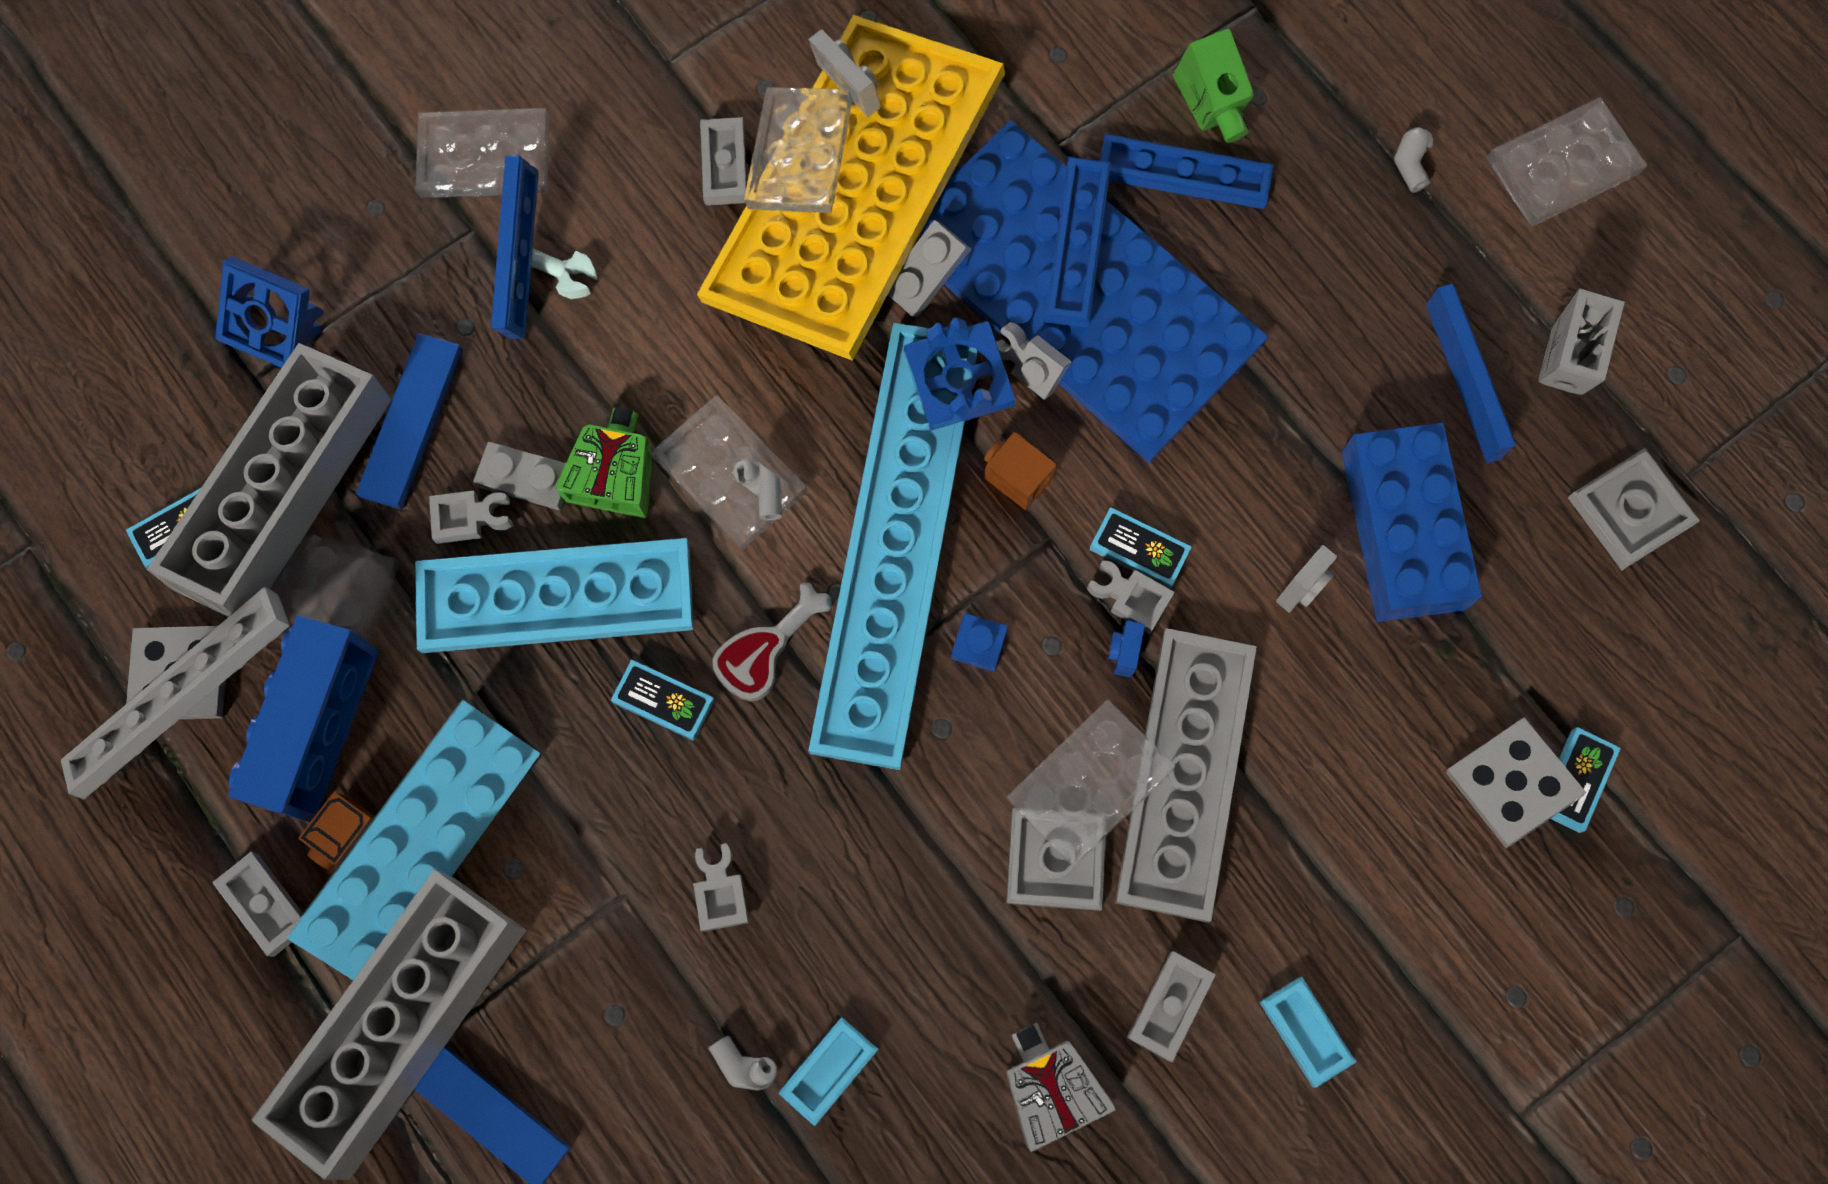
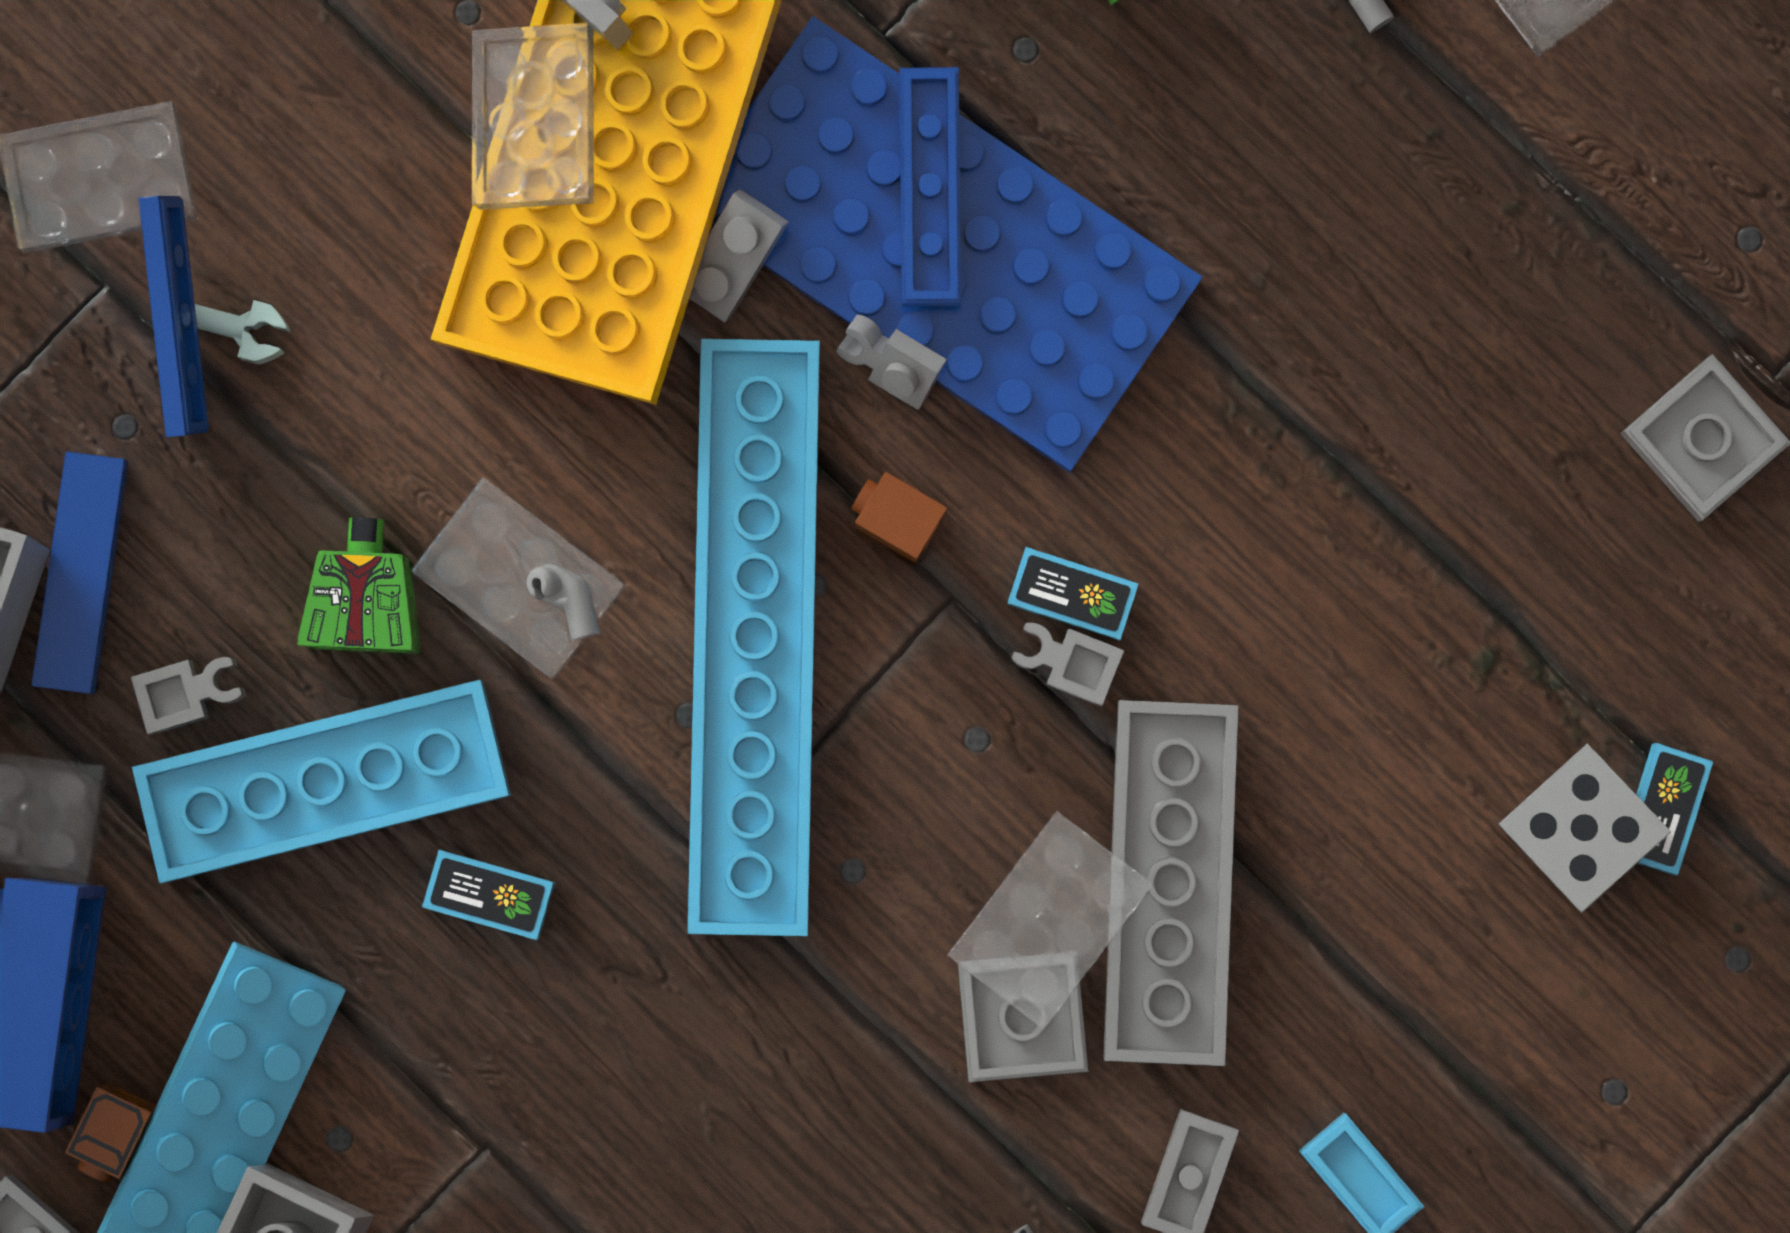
camera: 10 degrees left, 10 degrees up
(520, 475) = (244, 624): light grey plate -> none
(720, 898) = (609, 1135): light grey plate -> none
(723, 161) = (430, 138): light grey plate -> none
(749, 659) = (589, 823): light grey piece -> none
(965, 405) = (814, 345): blue piece -> none
(979, 642) = (882, 753): blue plate -> none
(1126, 648) = (1071, 734): blue plate -> none
(1187, 171) = (1062, 51): blue tile -> none
(1308, 581) = (1293, 613): light grey plate -> none
(1410, 522) = (1416, 507): blue brick -> none
(1470, 373) = (1474, 287): blue tile -> none
(1577, 357) = (1609, 243): light grey torso -> none

